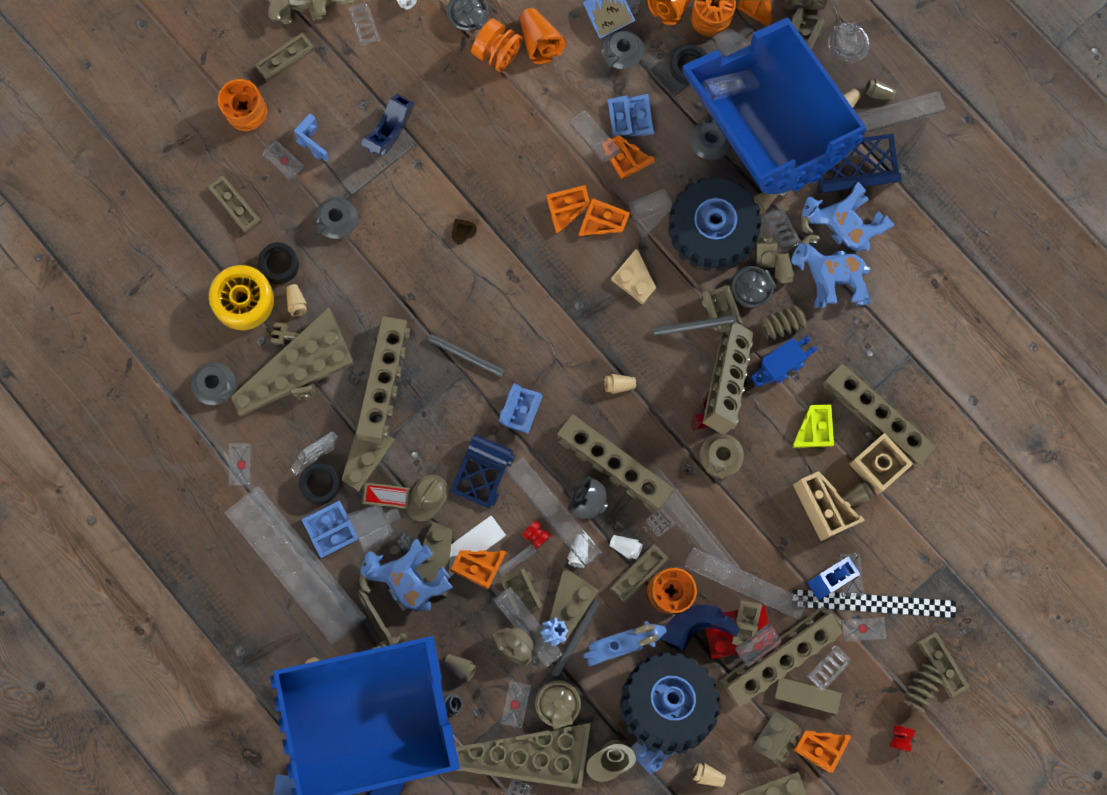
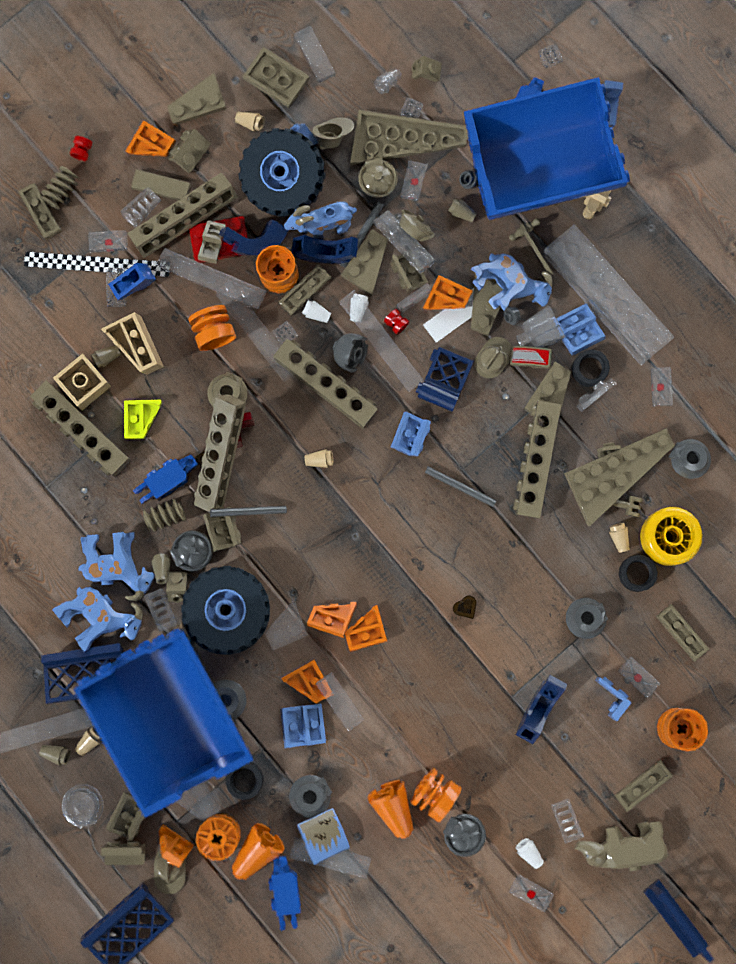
camera: 175 degrees left, 5 degrees up
(554, 631) = (381, 234): light blue gear -> none
(616, 615) = (324, 251): none -> dark blue arch
(635, 278) = (302, 561): tan wing -> none
(731, 84) = (203, 754): clear tile -> none
(742, 522) = (211, 327): none -> orange wheel
(758, 645) = (202, 221): clear tile -> none

